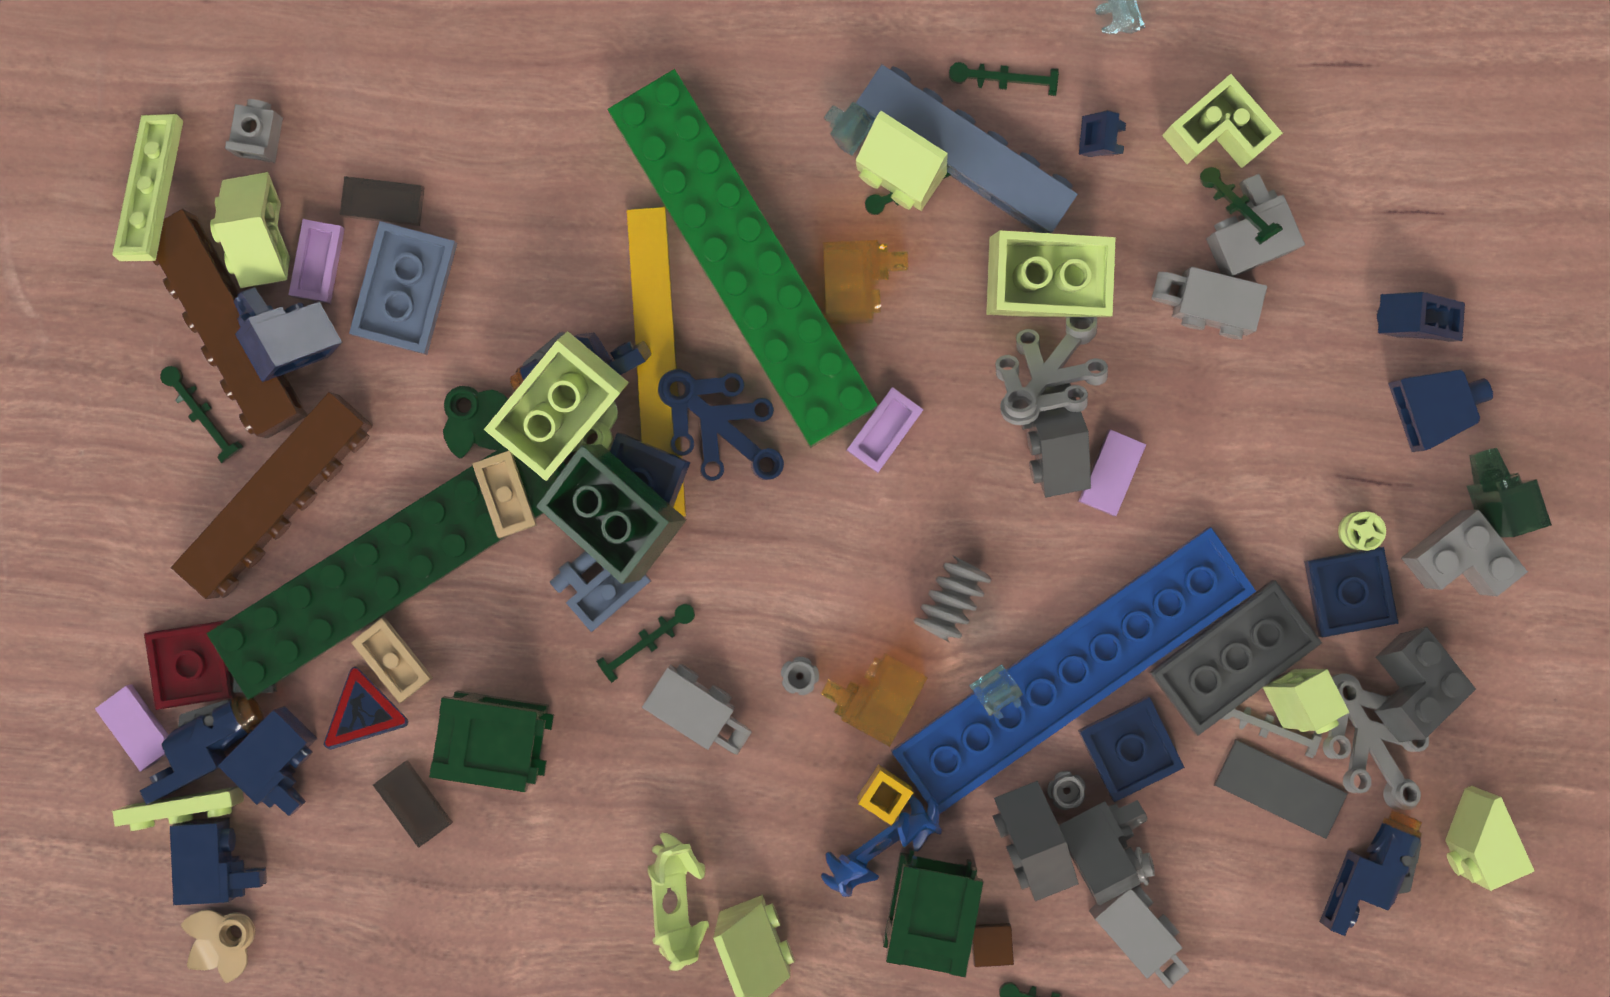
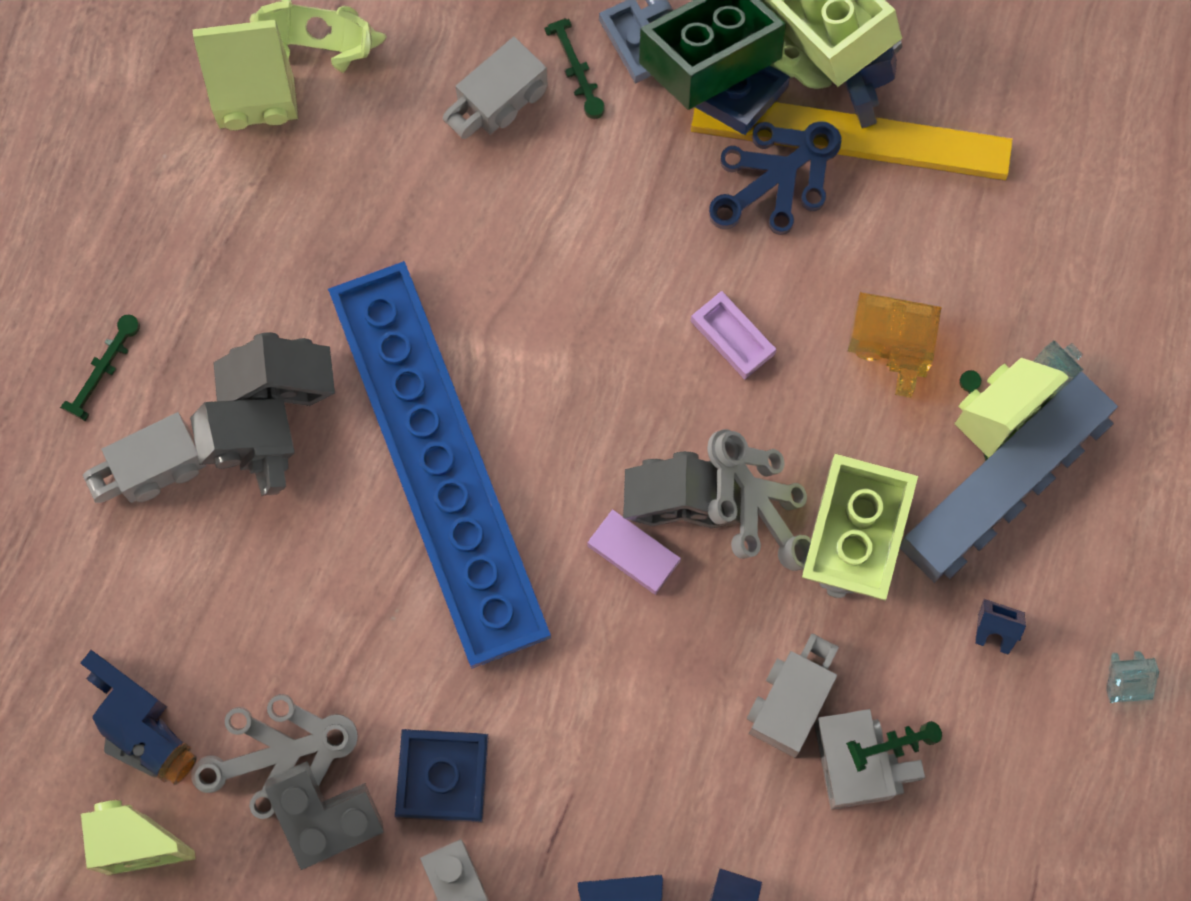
camera: 100 degrees right, 15 degrees down
(742, 258) = (938, 231): green brick -> none
(802, 686) = (500, 187): light grey plate -> none
(883, 702) = (455, 263): clear yellow hinge -> none
(884, 794) = (364, 241): yellow brick -> none
(913, 827) = (301, 203): blue piece -> none
(932, 914) = (232, 255): dark green container -> none
(952, 599) = (542, 357): light grey piece -> none
(960, 73) = (1094, 498): dark green piece -> none
(993, 945) = (181, 318): reddish brown tile -> none
(996, 691) = (438, 367): clear light blue tile -> none
(1076, 795) = (313, 416): light grey plate -> none
(1131, 749) = (340, 499): dark blue plate -> none
(1146, 864) = (215, 480): light grey plate -> none
(1224, 116) = (997, 746): yellowish green brick -> none
(1235, 657) = (405, 634): dark grey tile -> none
(1266, 726) = (353, 612): light grey piece -> none
(1280, 789) = (252, 649): dark grey piece -> none
(1306, 700) = (339, 681): yellowish green brick -> none
(1370, 533) = (503, 790): yellowish green wheel -> none

